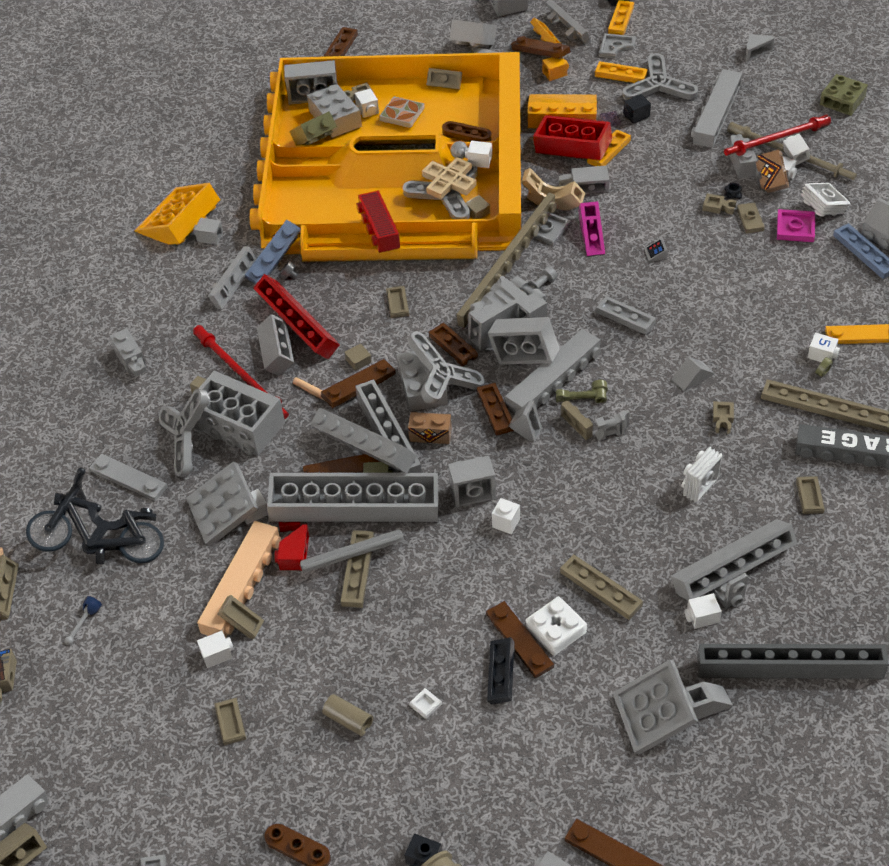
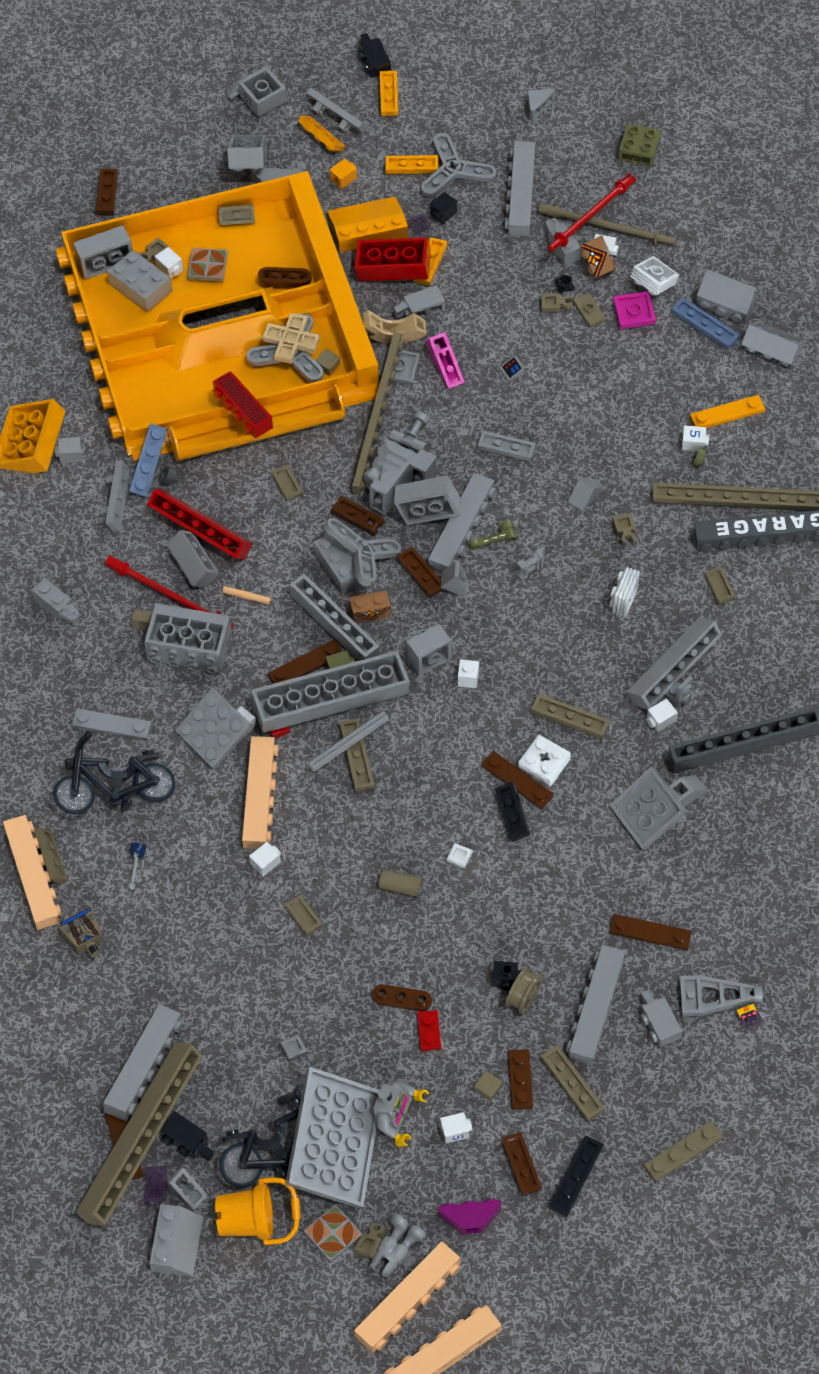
camera: 20 degrees left, 10 degrees up
(181, 426) = (138, 661): light grey piece -> none
(240, 617) = (276, 825): dark tan tile -> none
(293, 549) = (295, 754): red slope -> none
(313, 129) = (131, 311): olive brick -> none
(346, 388) = (289, 572): reddish brown plate -> none
(358, 357) = (273, 551): dark tan piece -> none
(363, 440) = (318, 636): light grey brick -> none
(458, 149) = (289, 303): light grey plate -> none
(479, 154) = (311, 303): white brick -> none
(538, 47) = (320, 152): reddish brown plate -> none
(577, 420) = (498, 565): dark tan plate -> none
(614, 44) = (393, 127): light grey tile -> none
(796, 149) = (613, 224): white brick -> none

